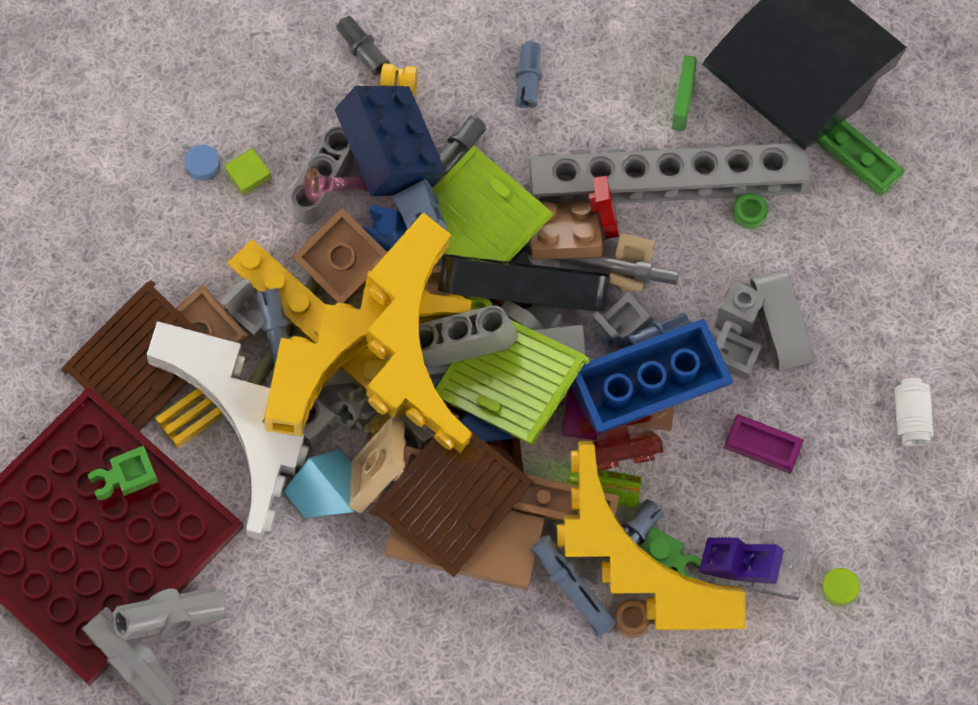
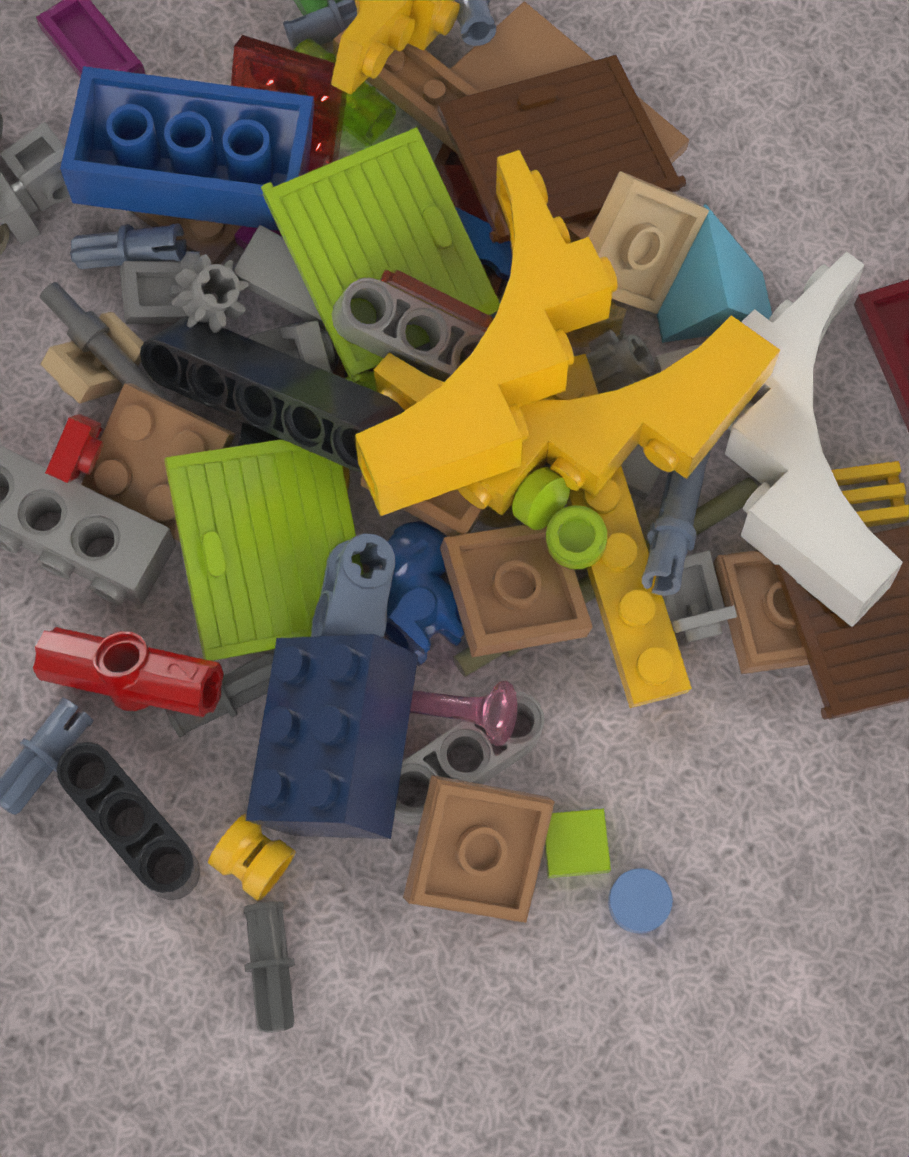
camera: 155 degrees left, 5 degrees up
(291, 134) = (478, 849): none -> medium nougat plate
(323, 290) = (576, 537): none -> lime tile
(354, 294) = (540, 498): none -> lime tile
(456, 54) = (108, 800): none -> black beam
(461, 349) = (437, 299): none -> clear red piece
(490, 125) = (128, 671): none -> red piece
(581, 302) = (215, 279): none -> light grey gear

